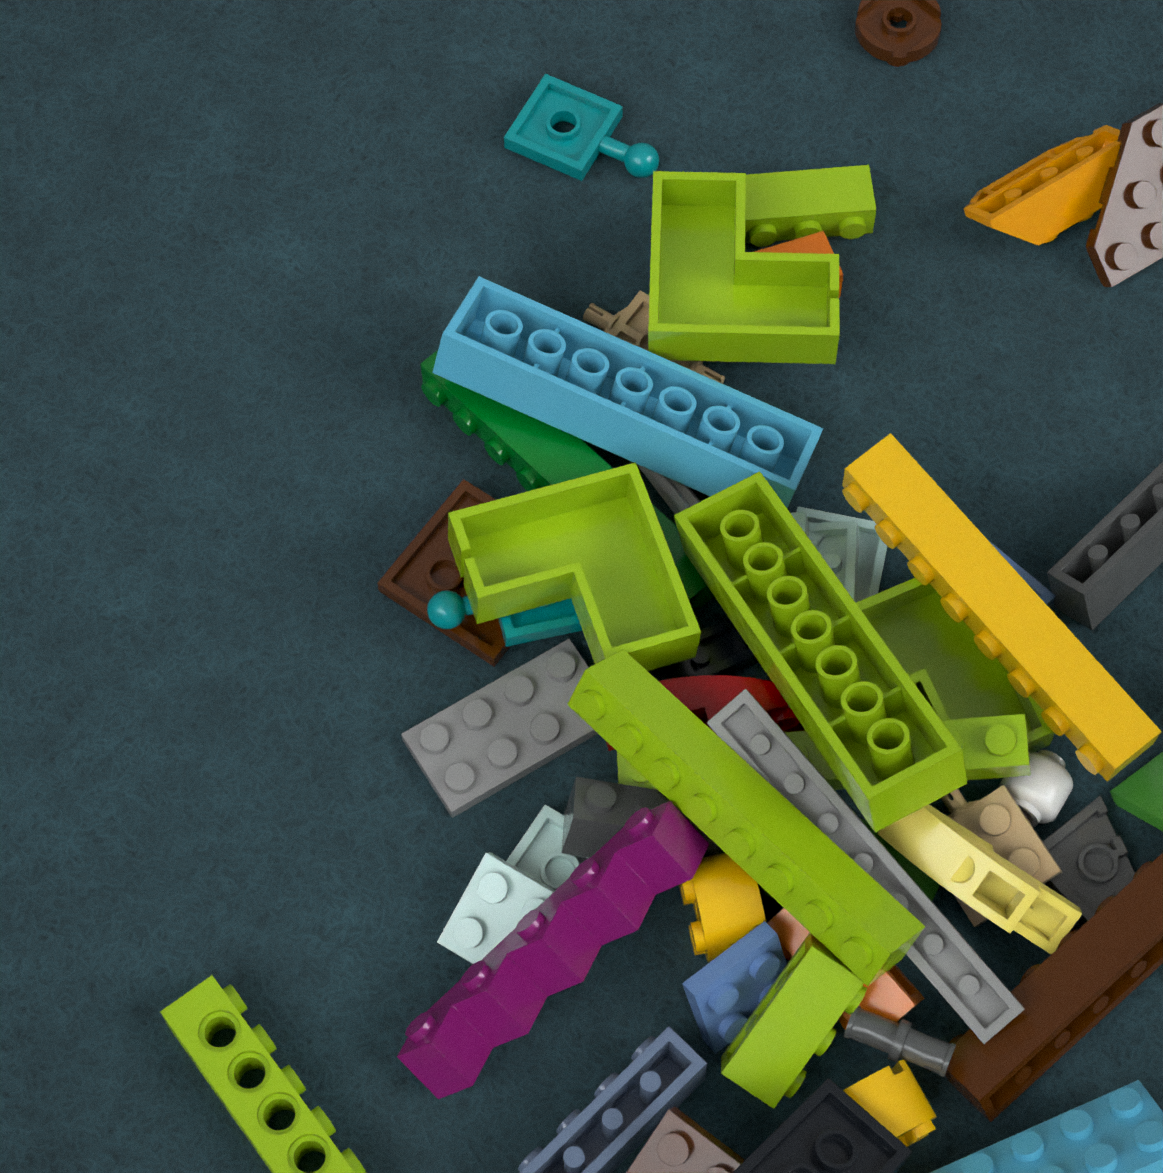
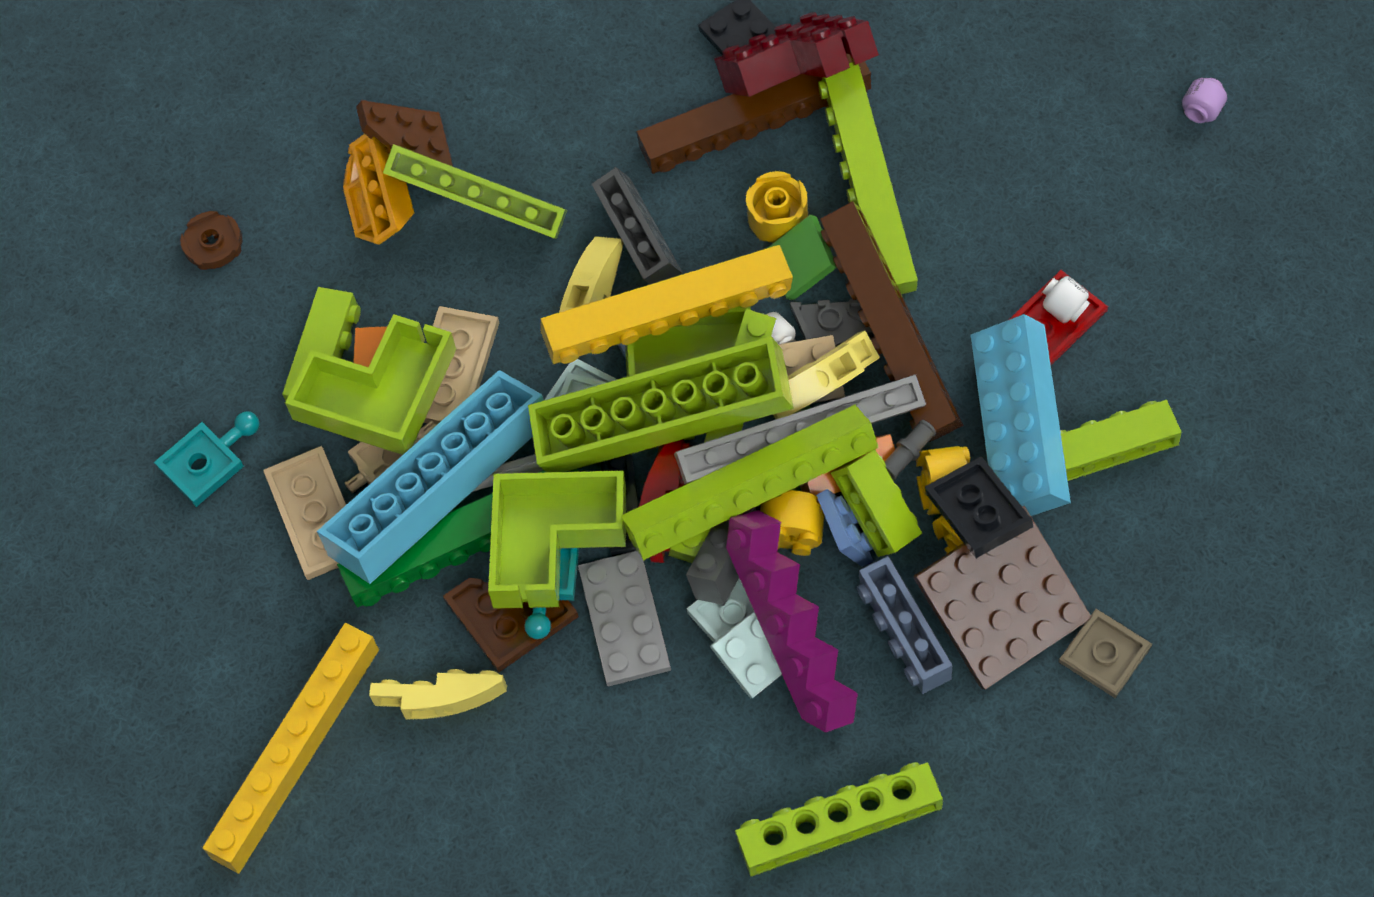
camera: 65 degrees left, 0 degrees up
(193, 372) = (291, 748): none -> yellow brick
(318, 528) = (451, 695): none -> light yellow slope
(559, 264) = (307, 500): none -> tan plate
(866, 382) = (473, 340): none -> tan plate
(1027, 505) = (594, 273): none -> light yellow slope
(1093, 302) = (475, 191): none -> lime brick

